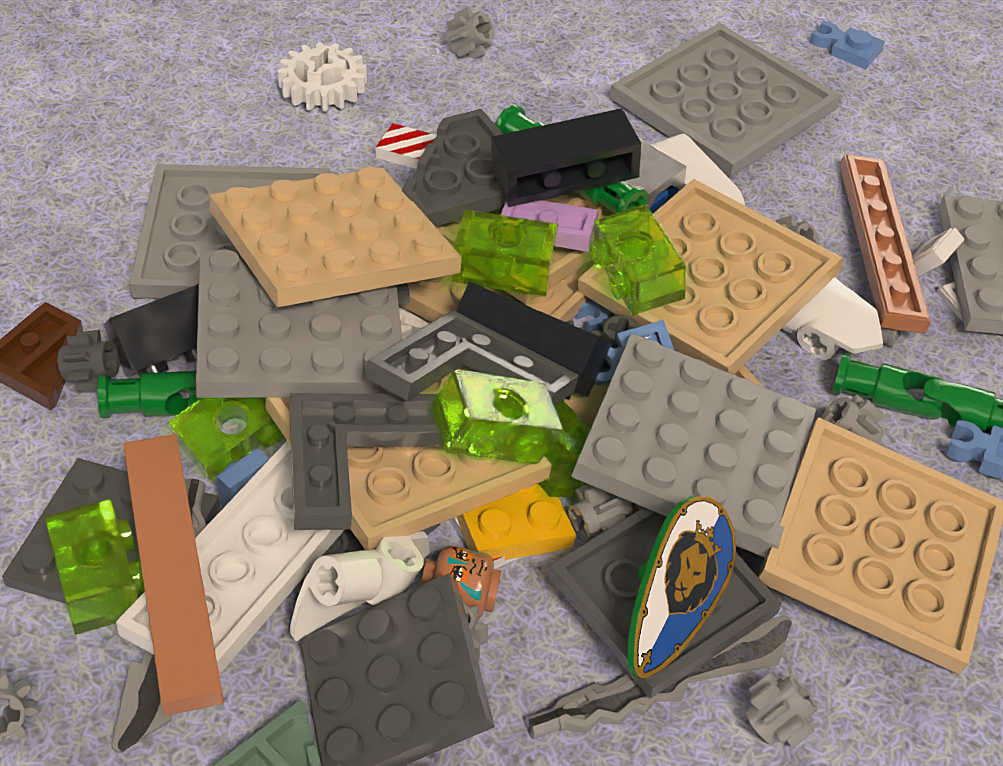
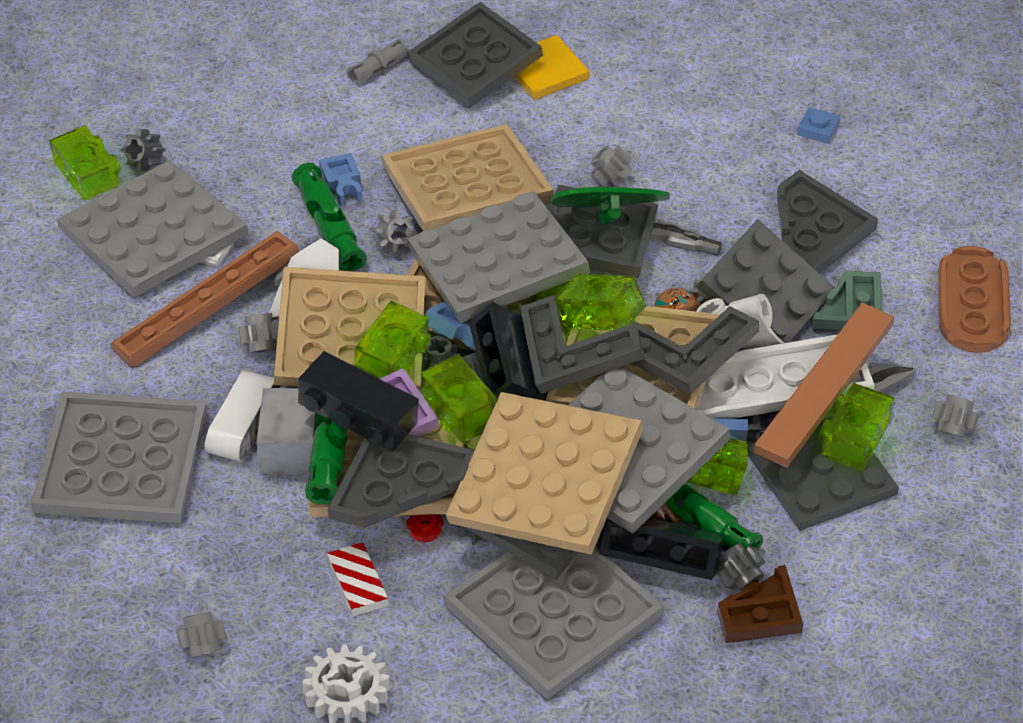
camera: 130 degrees left, 0 degrees up
(936, 250) = (192, 269): white tile -> none

